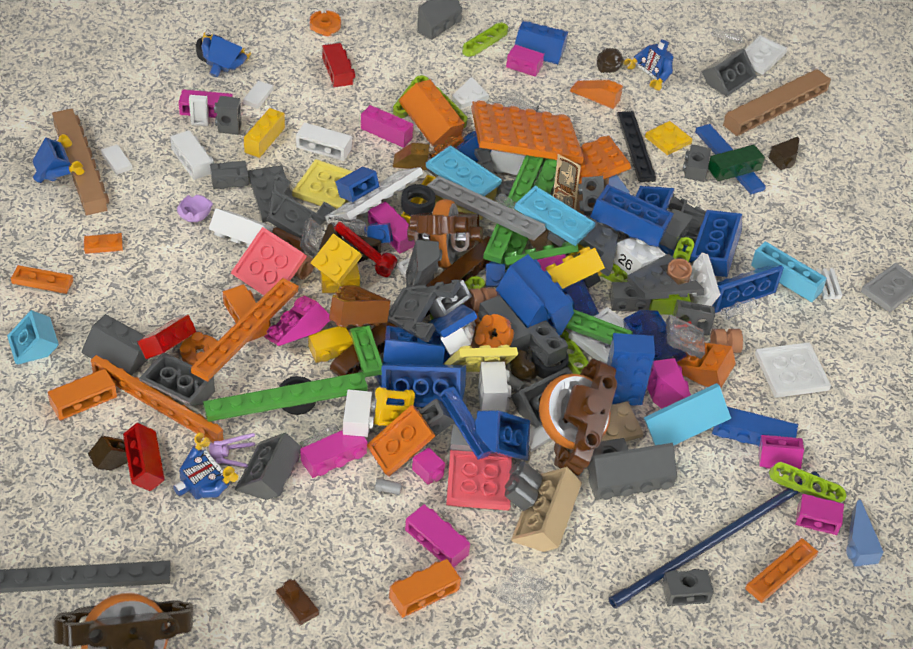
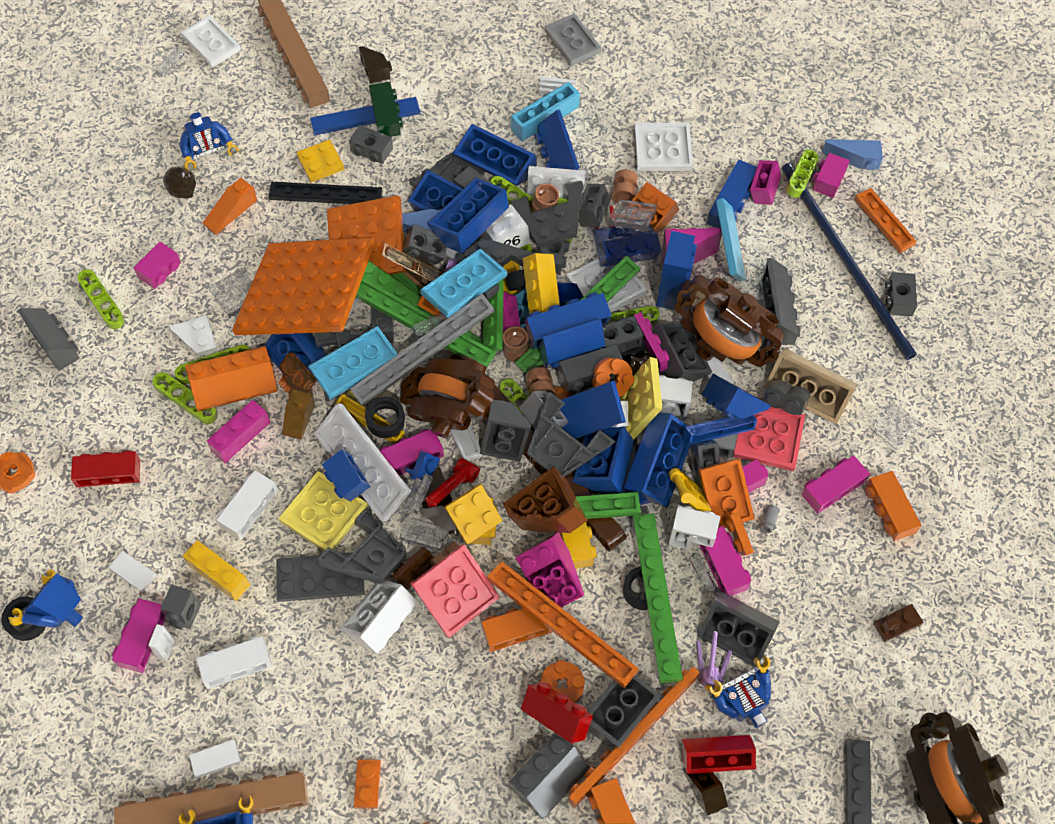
camera: 75 degrees left, 15 degrees up
(194, 208) = (338, 666): lavender hair -> none
(229, 174) = (282, 621): dark grey brick -> none
(363, 456) = (735, 526): none -> orange plate
(494, 273) = (501, 367): blue bracket -> none
(543, 40) = (129, 241): blue slope -> none
(547, 366) = (652, 342): none -> dark pink plate
(730, 72) = (233, 77): dark grey slope -> none

